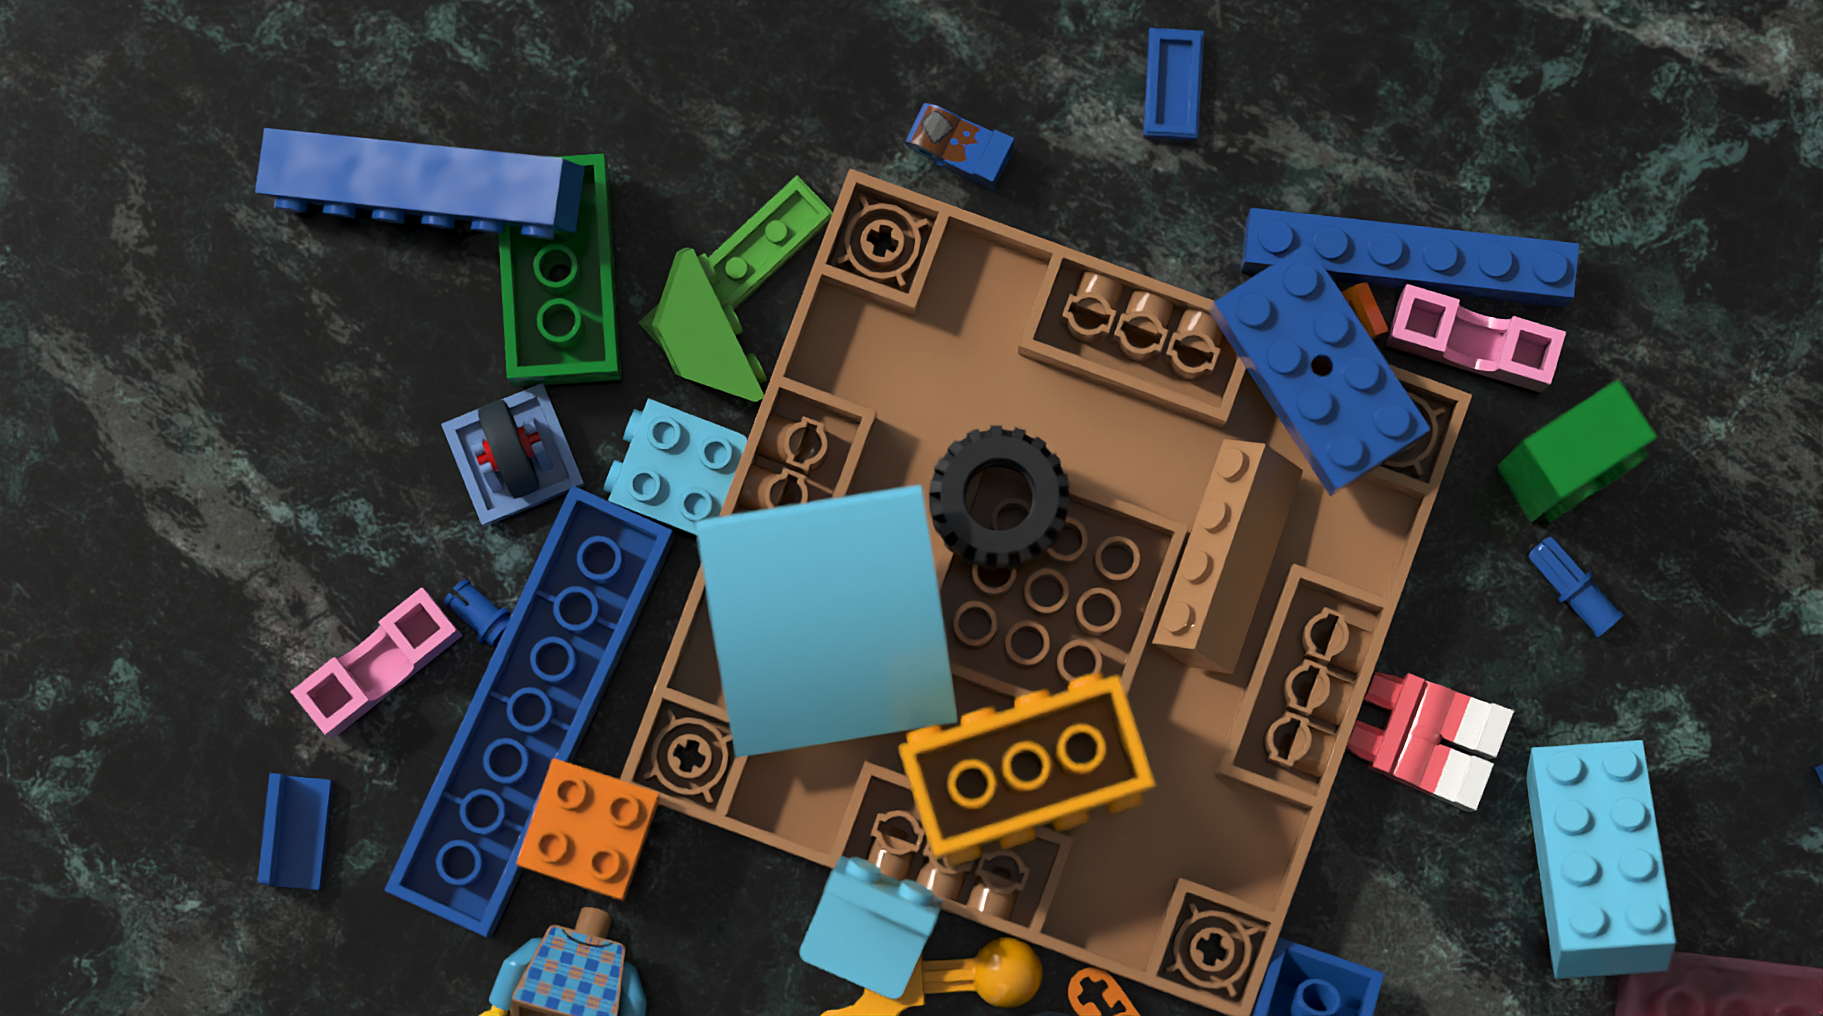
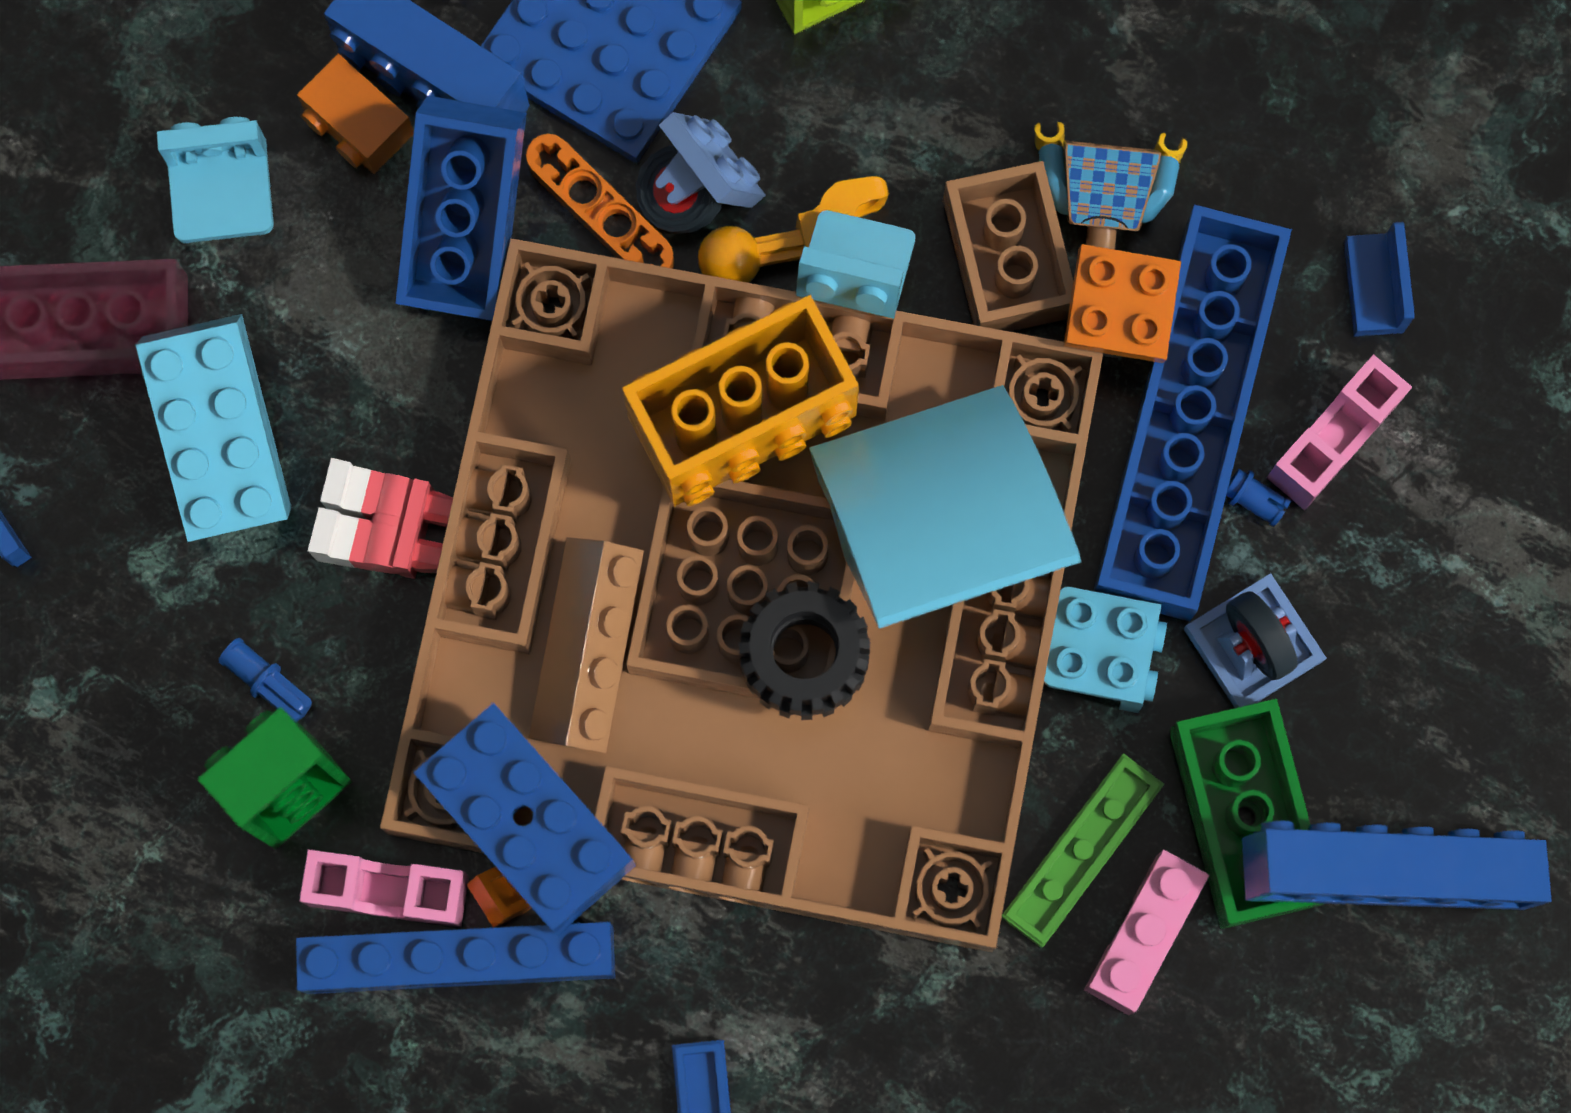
camera: 170 degrees right, 5 degrees down
(681, 172) = (1146, 932): none -> bright pink arch
(696, 927) = (1009, 247): none -> medium nougat brick
(702, 333) = (1103, 774): bright green slope -> none
(960, 145) = (895, 999): leg -> none

